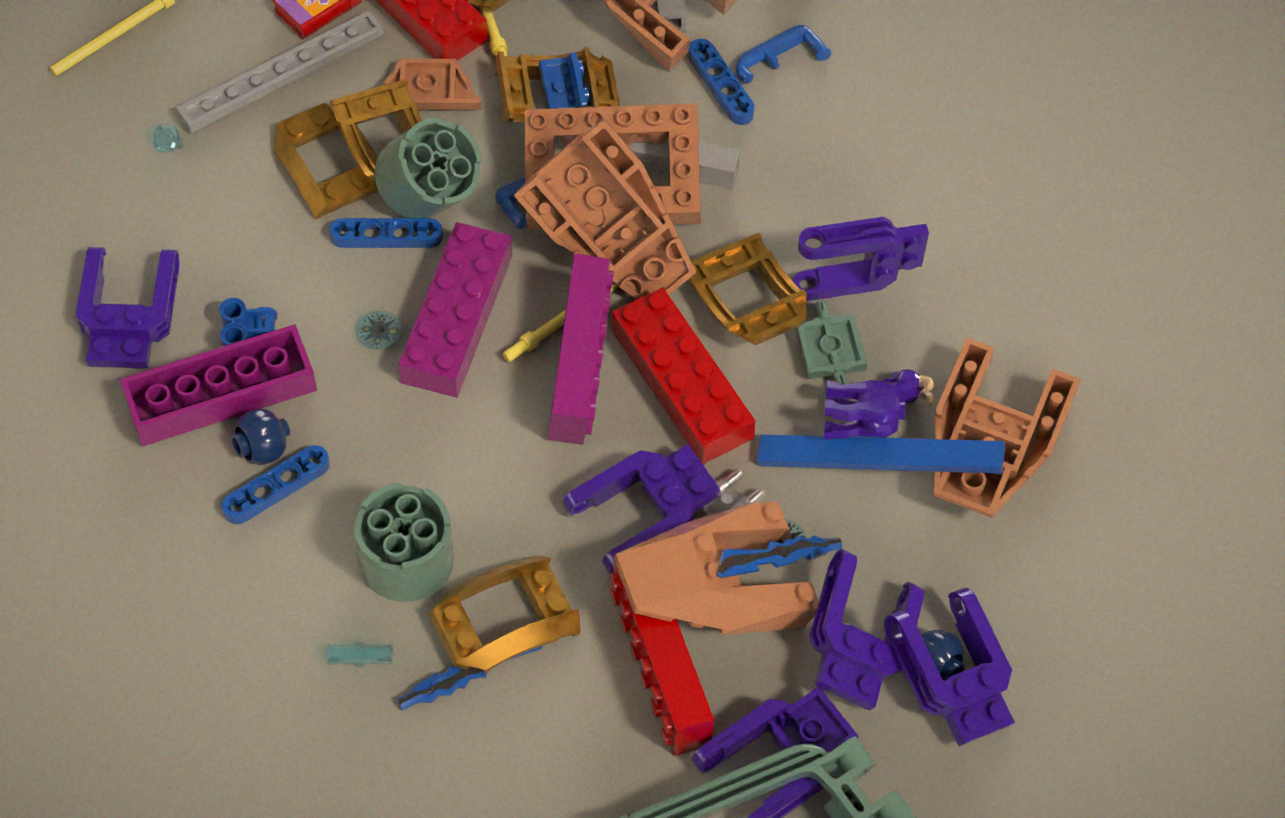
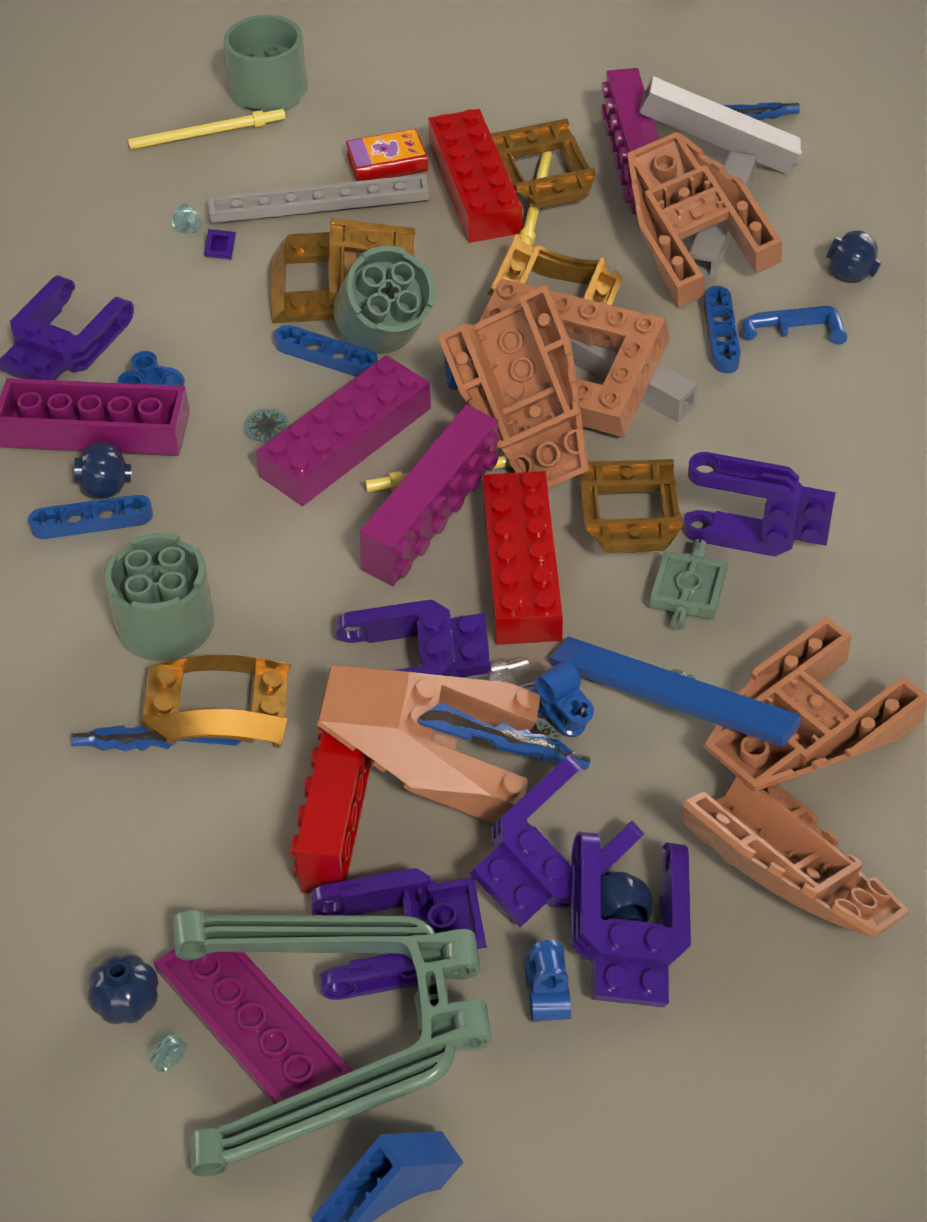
camera: 30 degrees right, 10 degrees down
(216, 154) = (220, 244): none -> dark purple slope
(359, 654) = (65, 681): clear light blue pin -> none
(436, 84) = (448, 249): nougat wing -> none
(563, 82) = (564, 273): blue bracket -> none
(796, 495) = (563, 699): none -> blue piece
(873, 405) = (692, 644): dark purple animal -> none
(920, 748) = (547, 982): none -> blue piece
(1047, 562) = (784, 850): none -> nougat wedge

